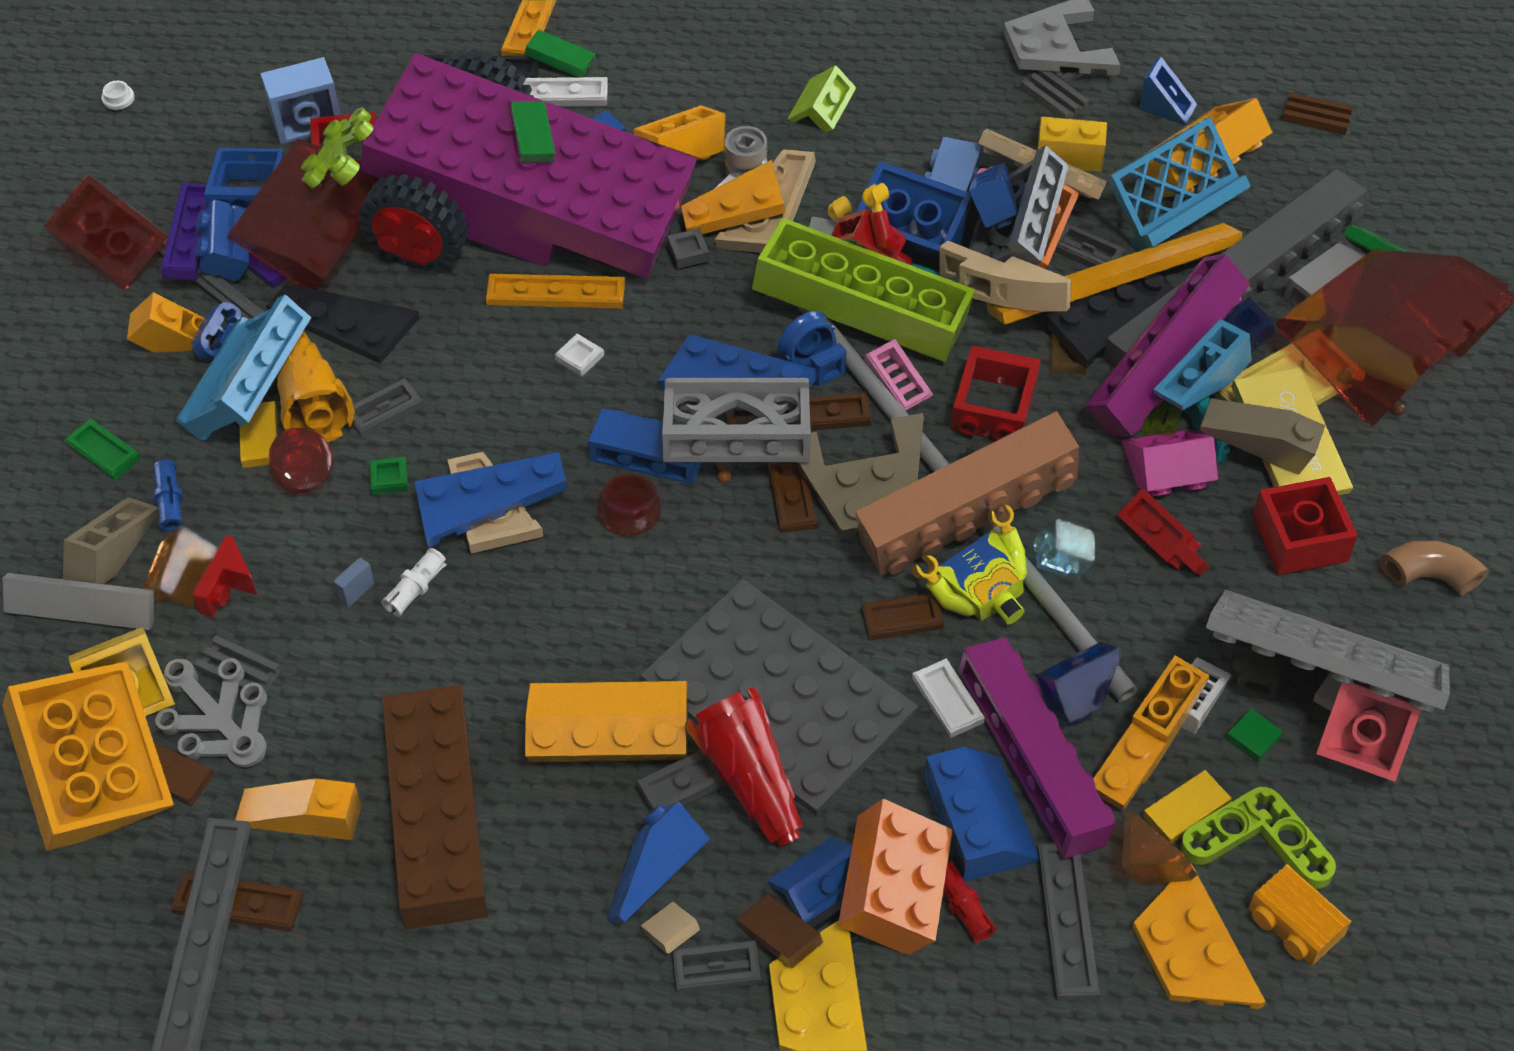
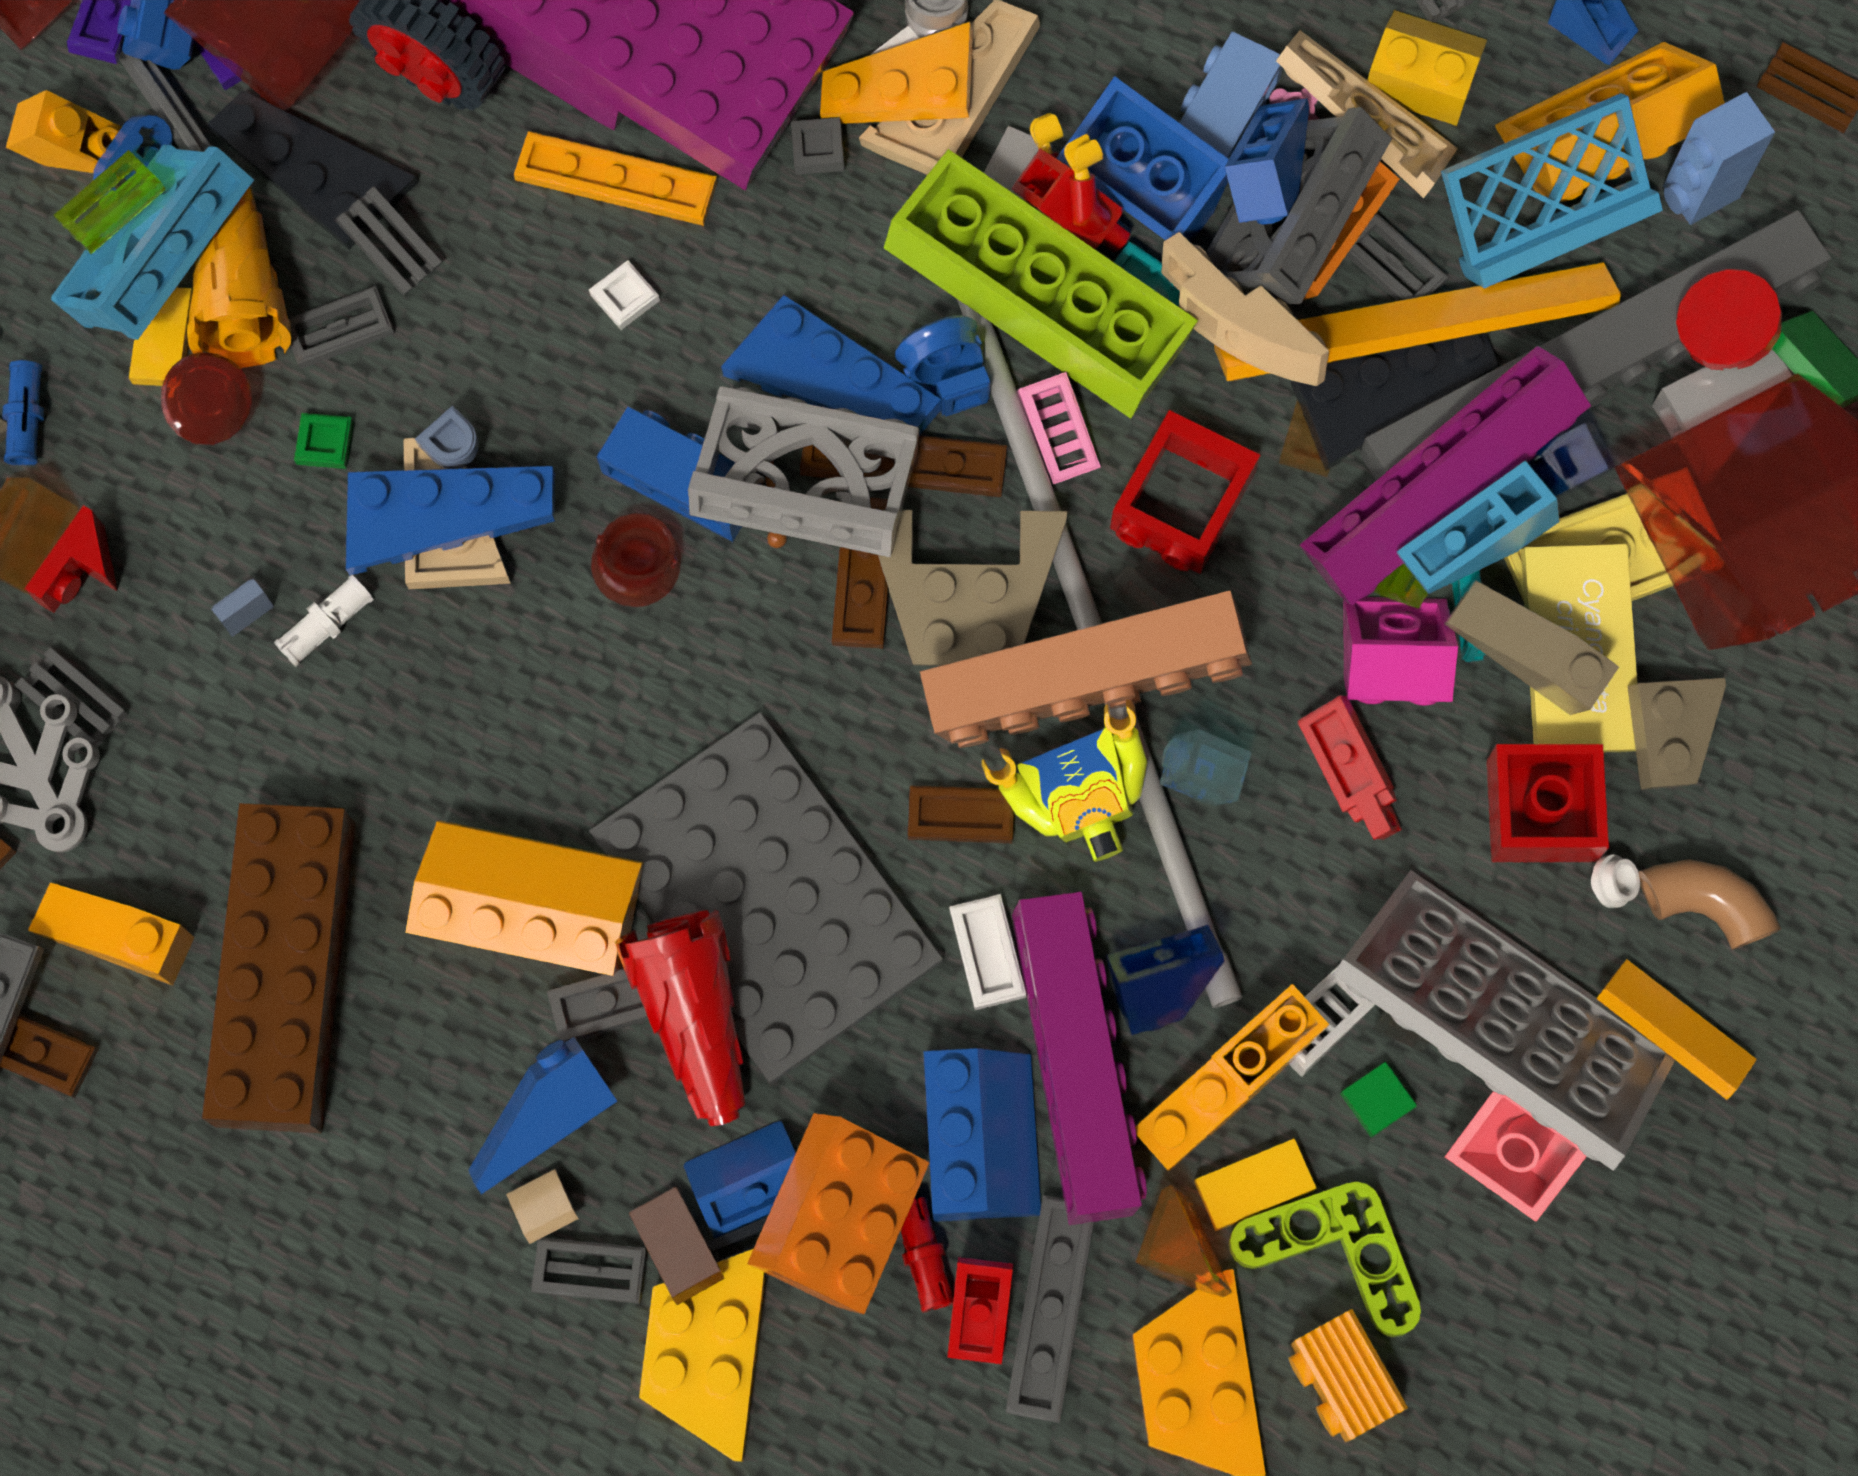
camera: 15 degrees right, 20 degrees up
(213, 355) = (115, 207): none -> clear neon green tile
(412, 344) = (360, 209): none -> dark grey tile
(480, 451) = (449, 440): none -> sand blue tile
(1018, 922) = (980, 1310): none -> red slope
(1277, 144) = (1717, 158): none -> medium blue brick
(1319, 227) = (1729, 319): none -> red tile
(1366, 567) = (1615, 881): none -> white plate
(1369, 471) = (1673, 729): none -> dark tan wing
(1442, 648) = (1677, 1029): none -> light orange tile

